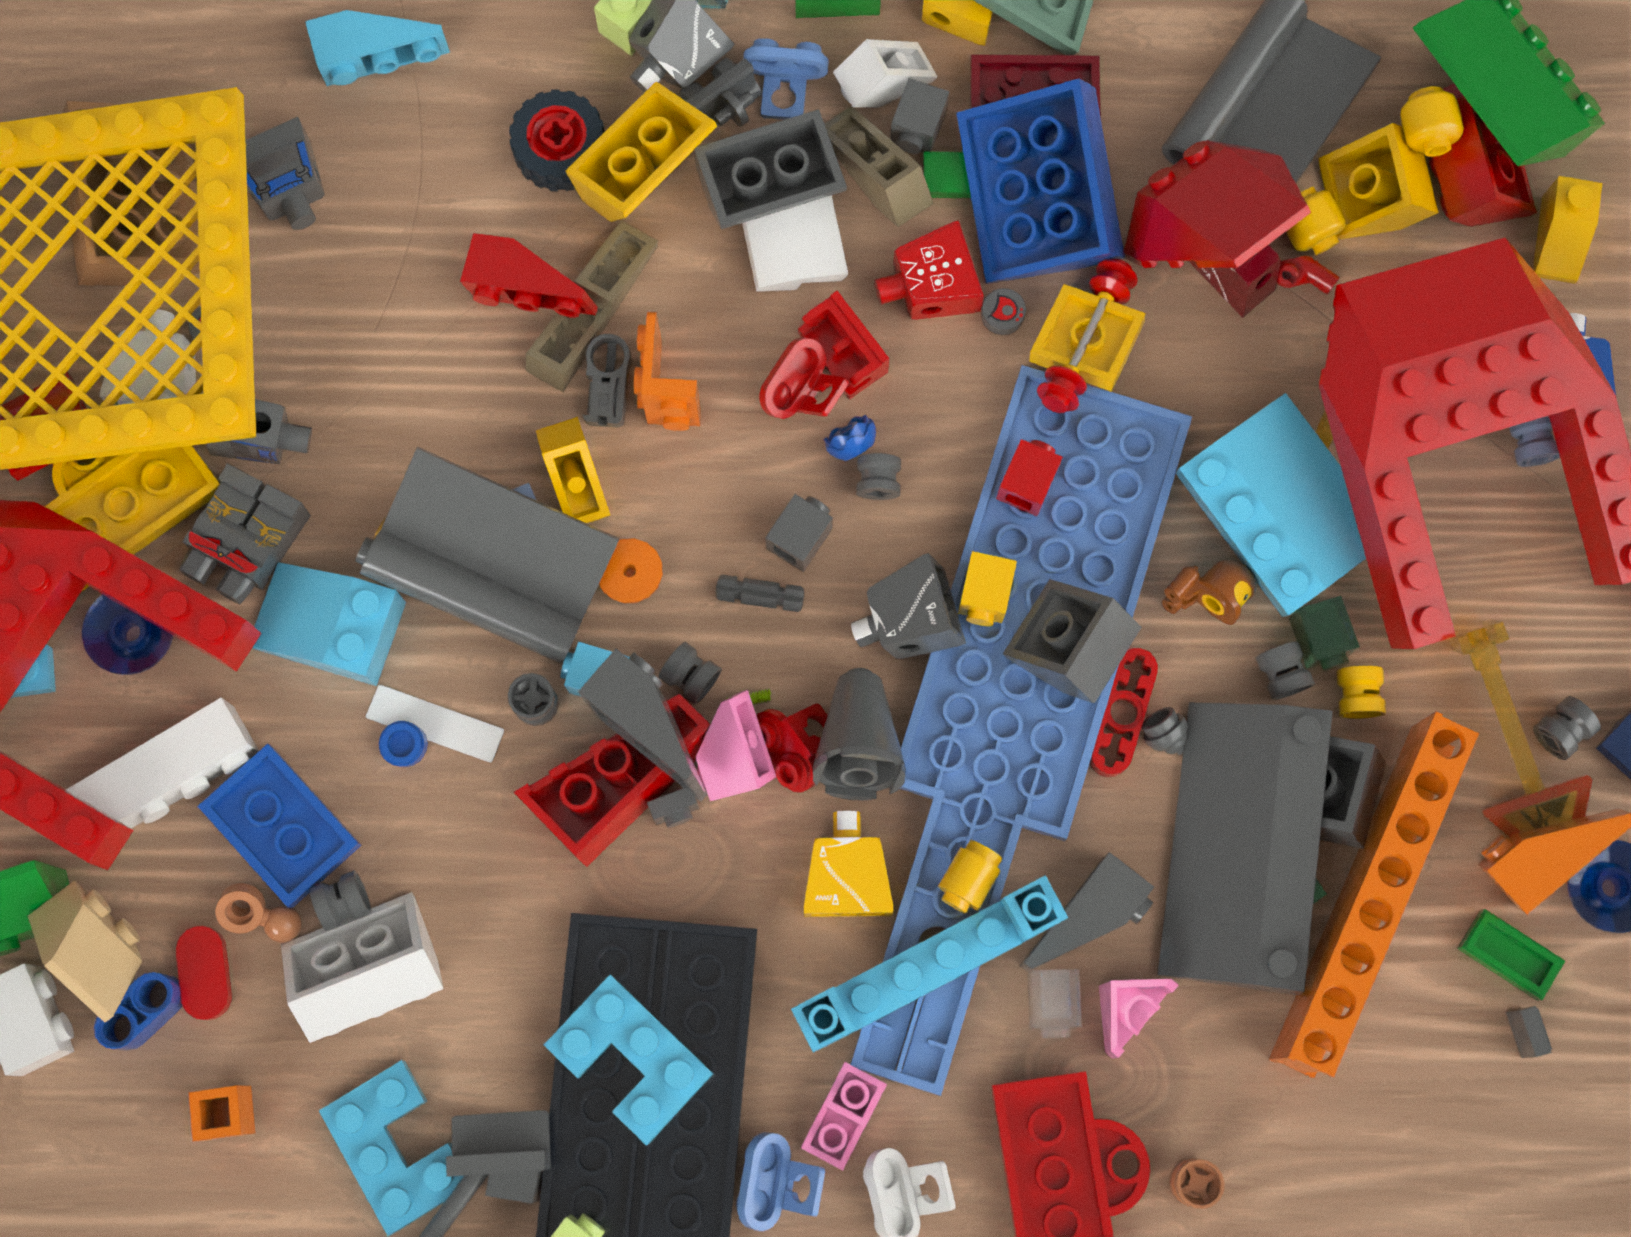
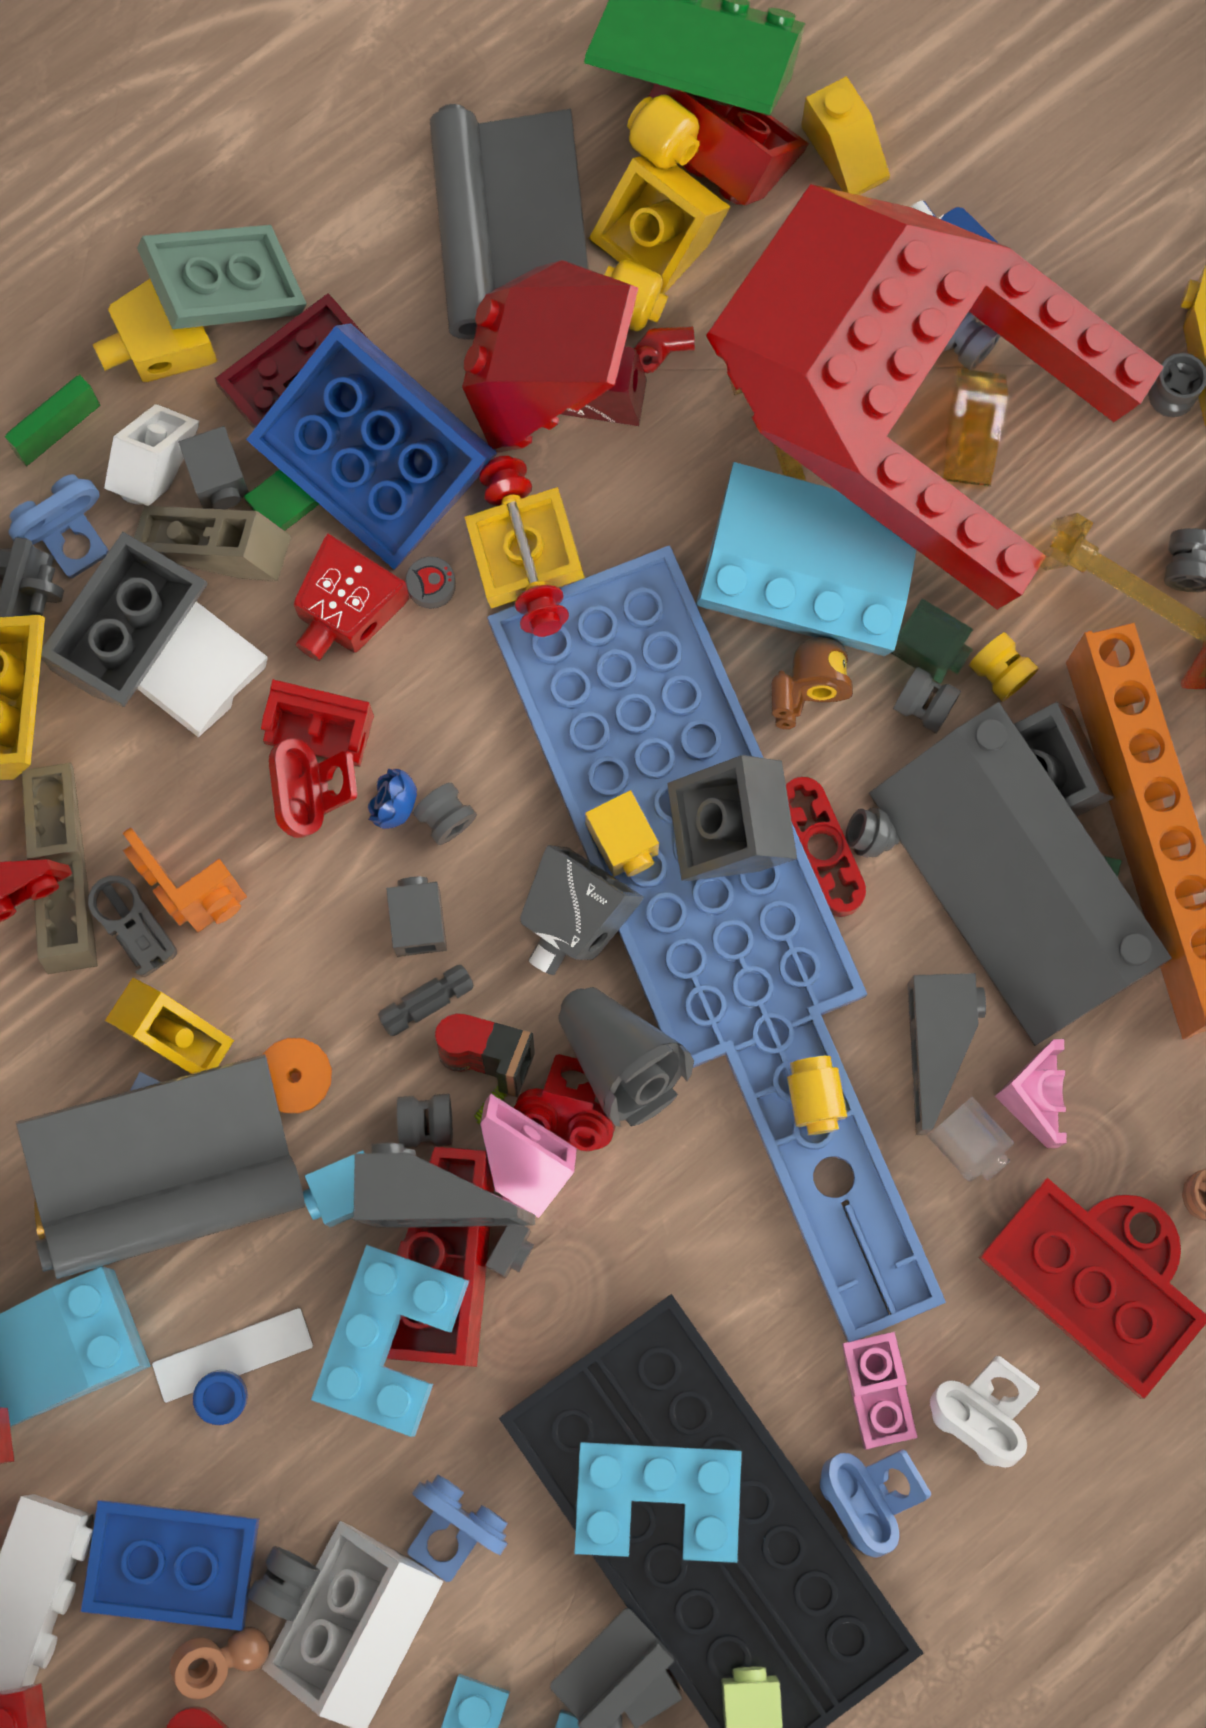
camera: 40 degrees left, 0 degrees up
(497, 975) = (479, 1527): none -> medium blue bracket
(502, 795) = (354, 1366): none -> medium azure plate
(531, 691) = (299, 1254): dark grey wheel -> none
(772, 658) = (486, 1047): none -> leg
(847, 873) = (708, 1179): yellow torso -> none
(929, 964) = (845, 1199): medium azure slope -> none
(1029, 476) = (578, 707): red brick -> none
(1485, 506) = (975, 426): none -> clear yellow slope

